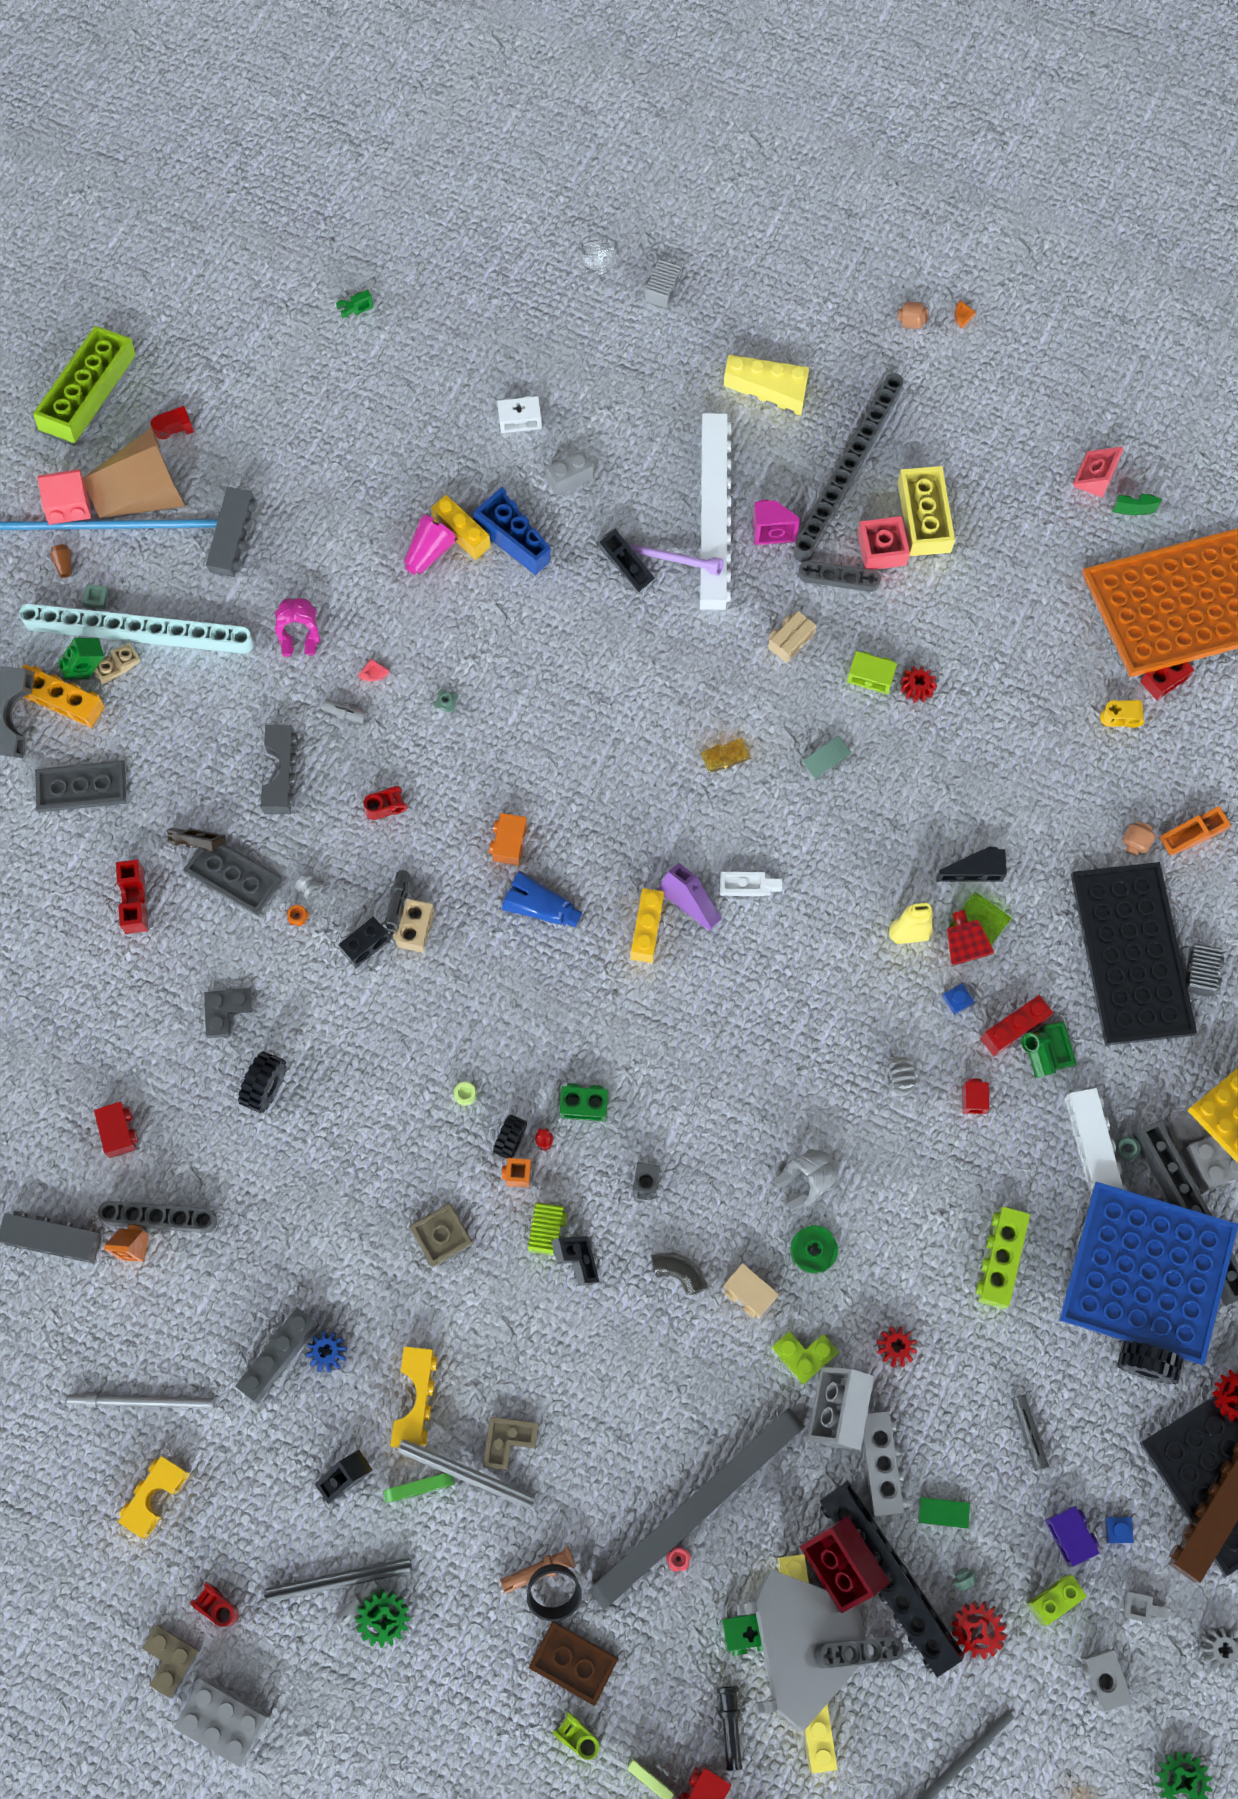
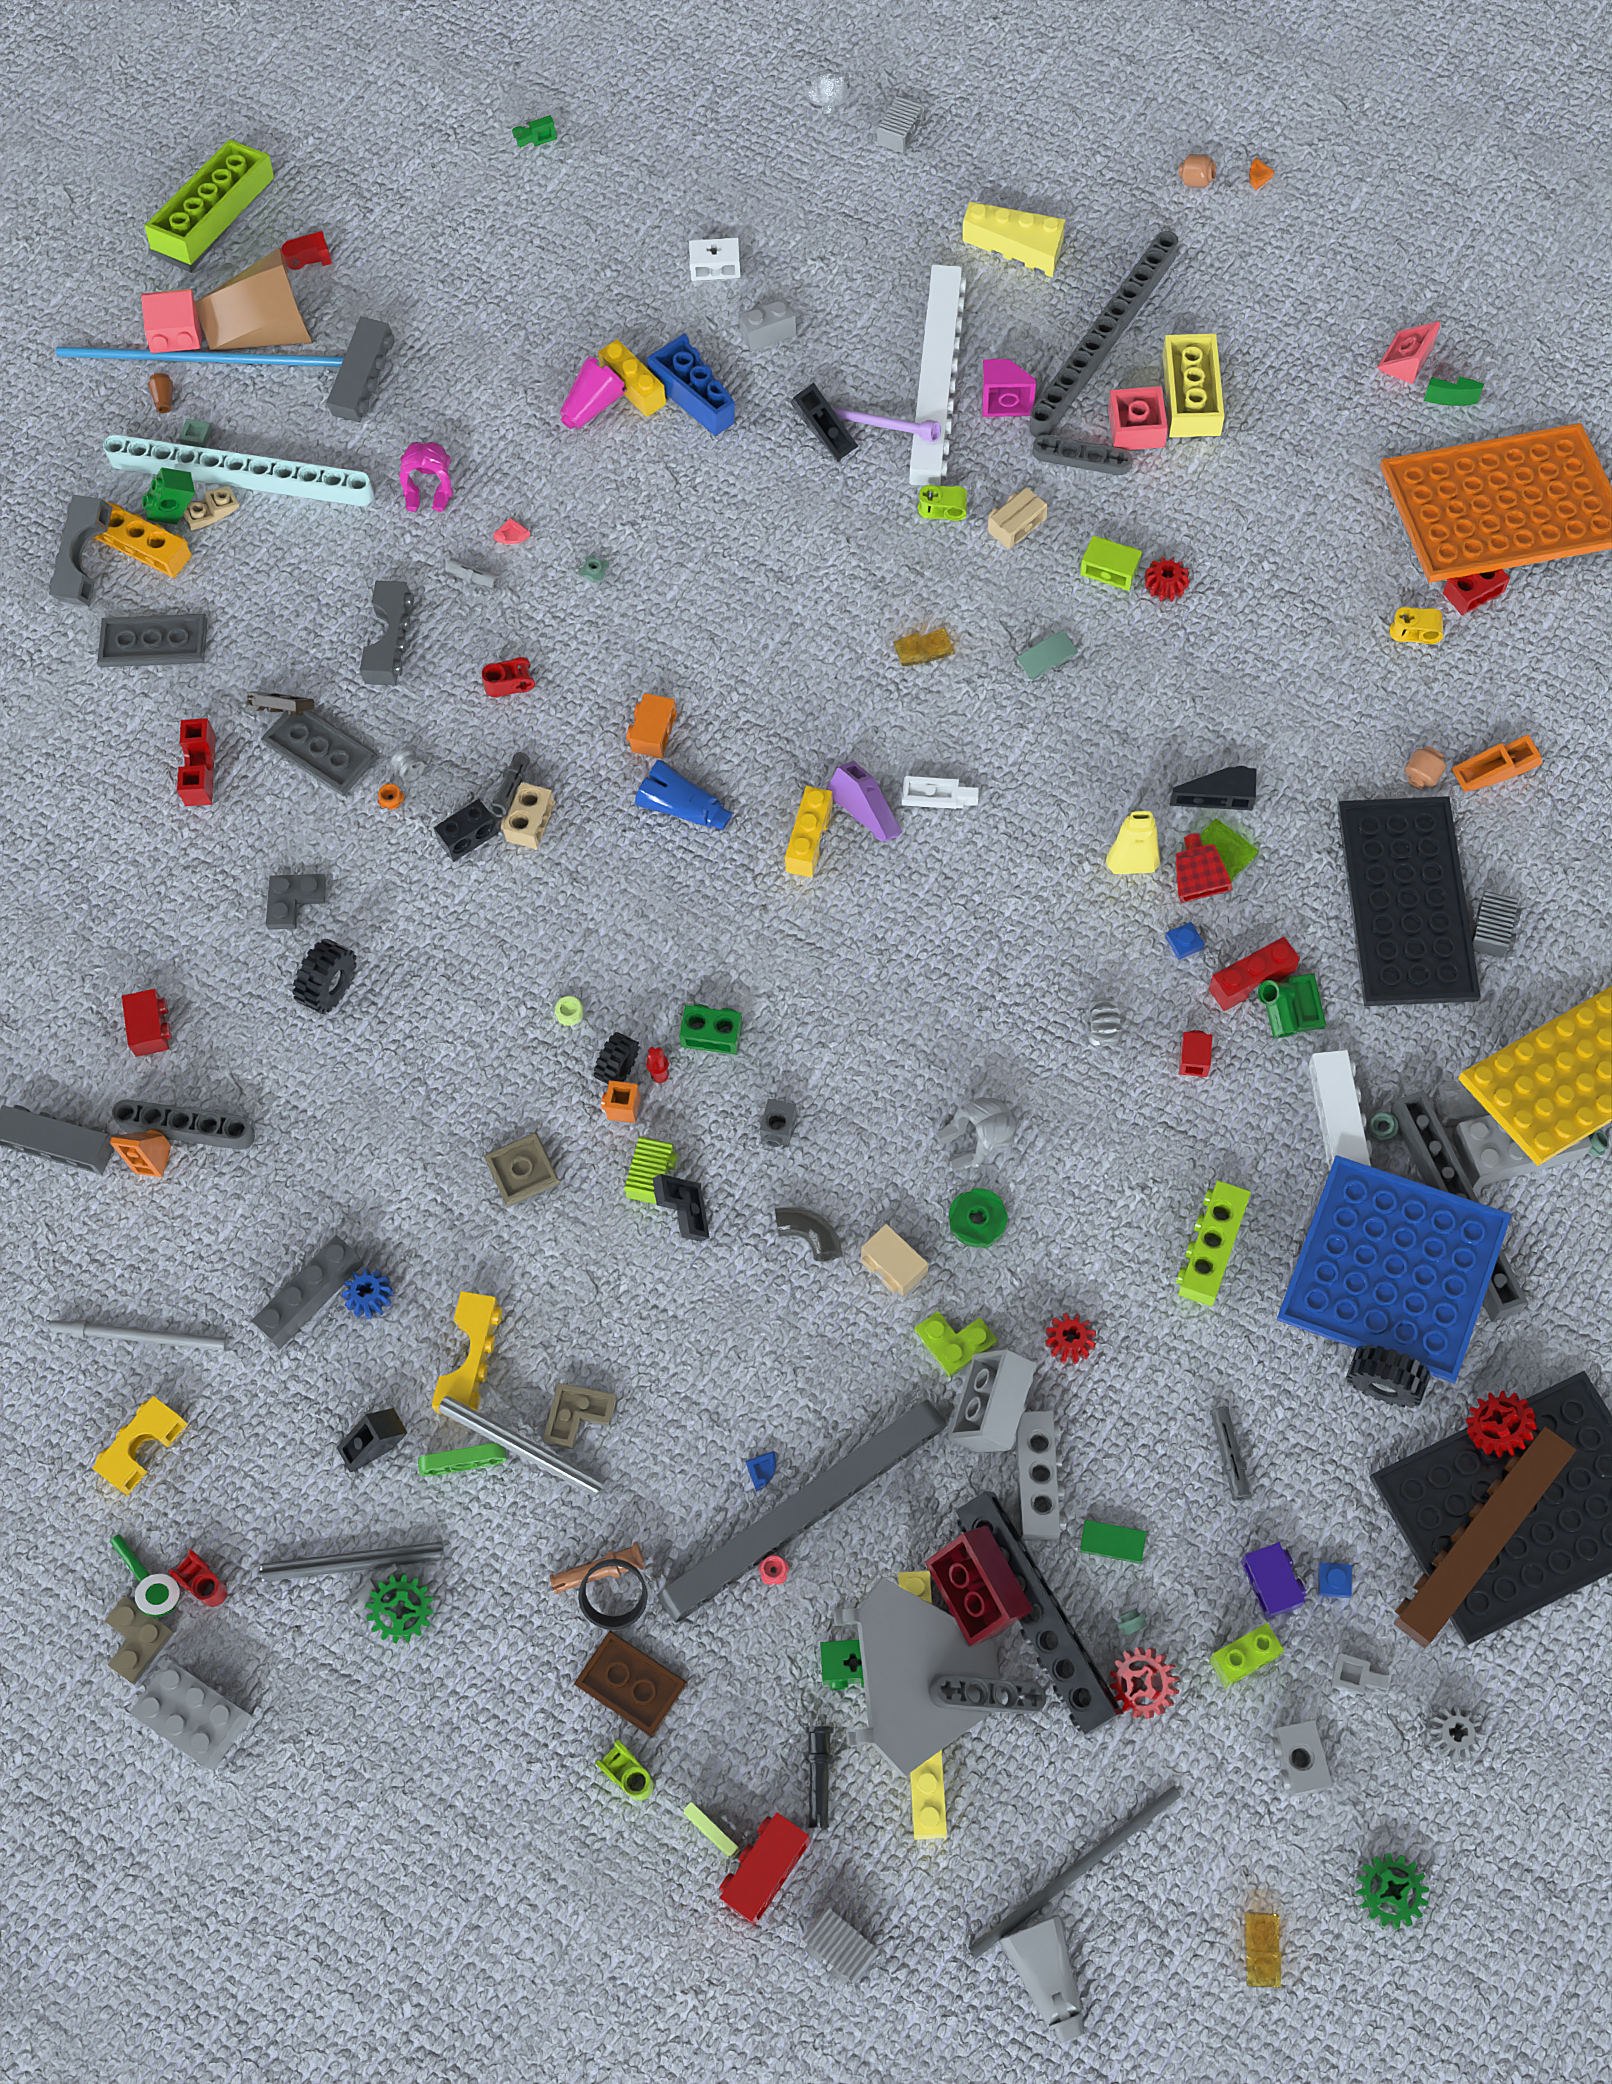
camera: 10 degrees right, 5 degrees down
(182, 1620) = (156, 1593): none -> piece
(660, 1475) = (762, 1469): none -> blue tile
(732, 626) = (945, 502): none -> lime piece

